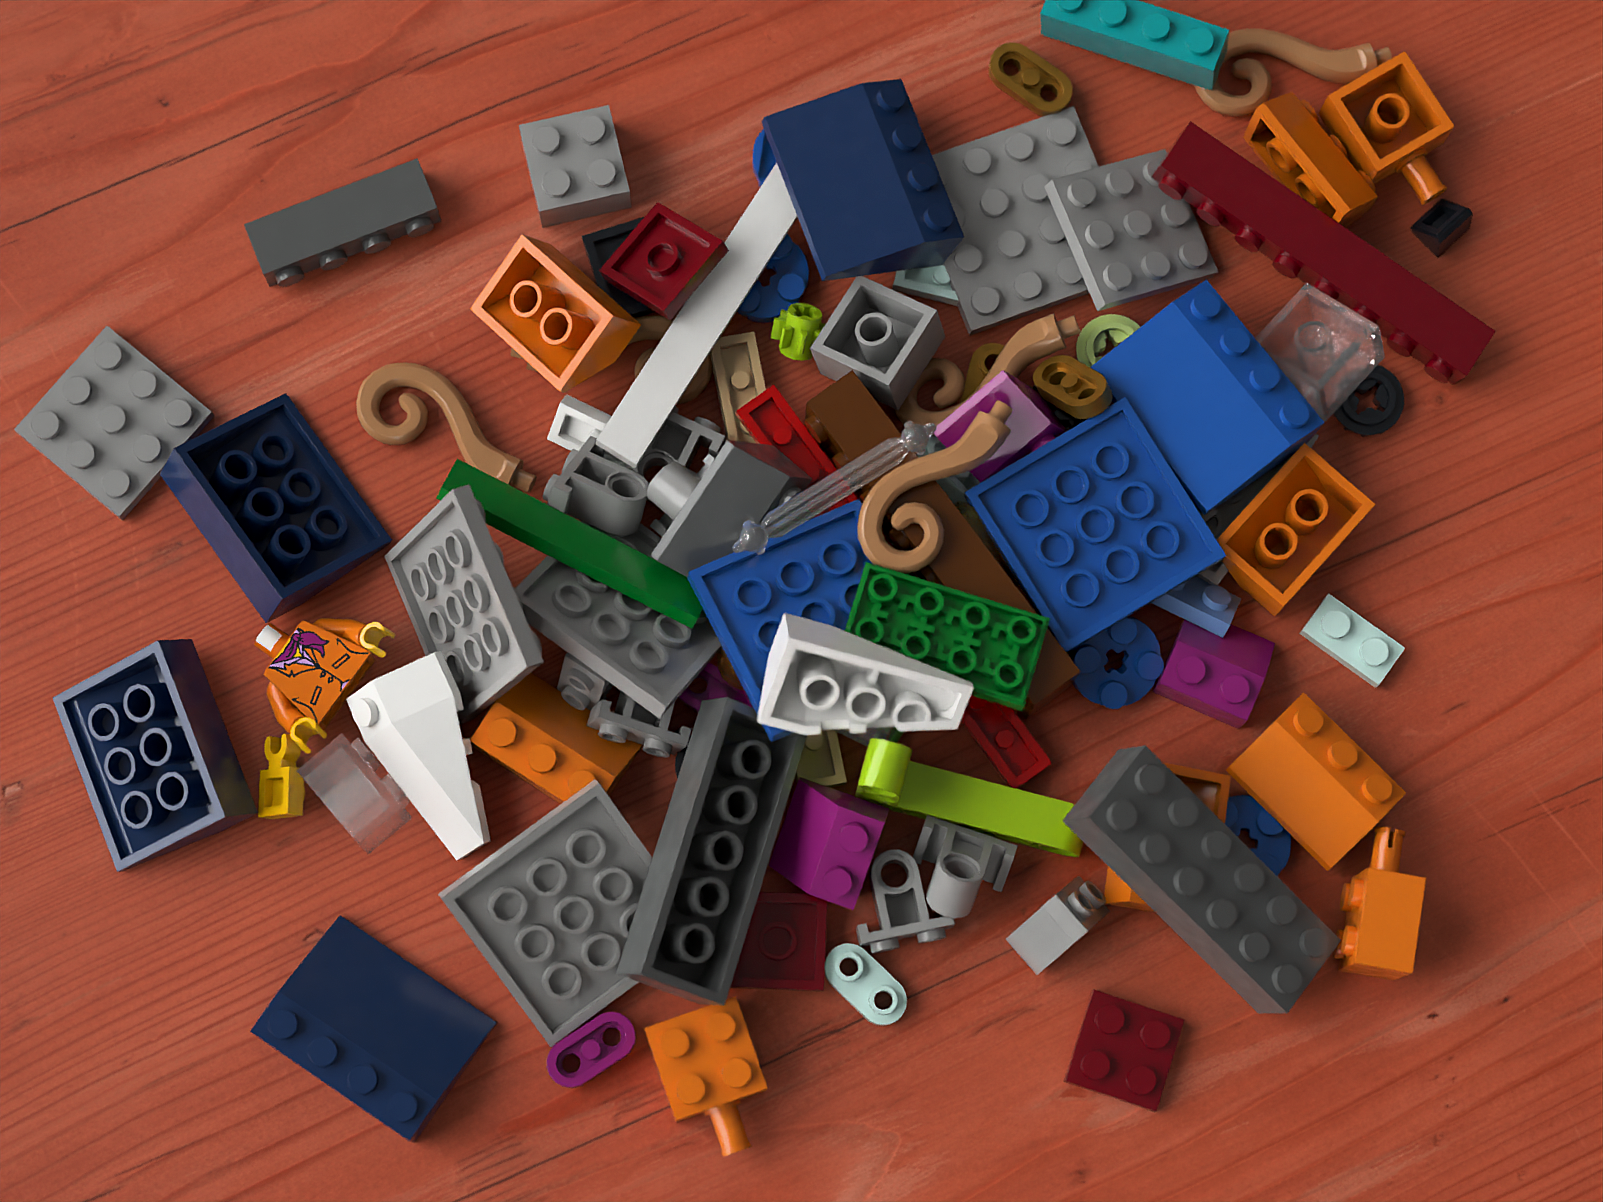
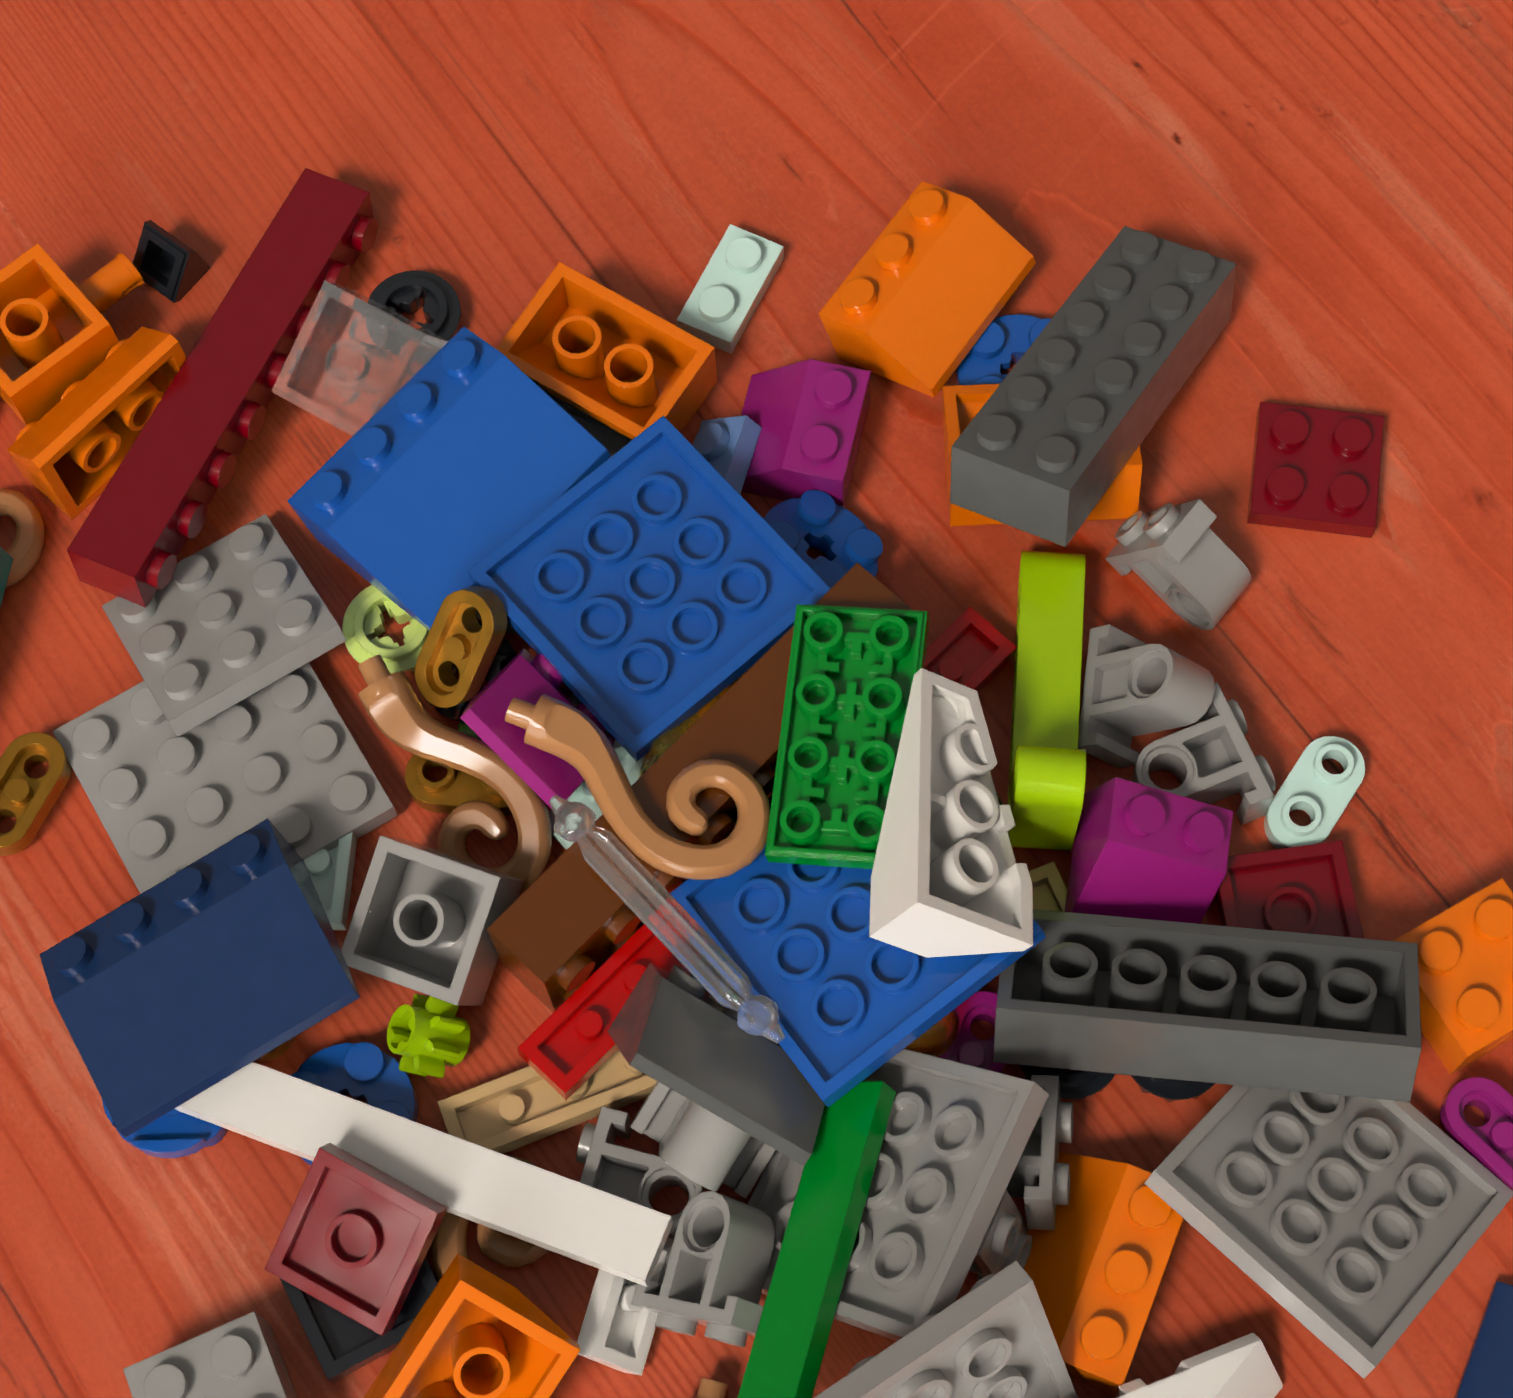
camera: 90 degrees left, 10 degrees down
(1381, 914) = (1080, 185): orange brick -> none

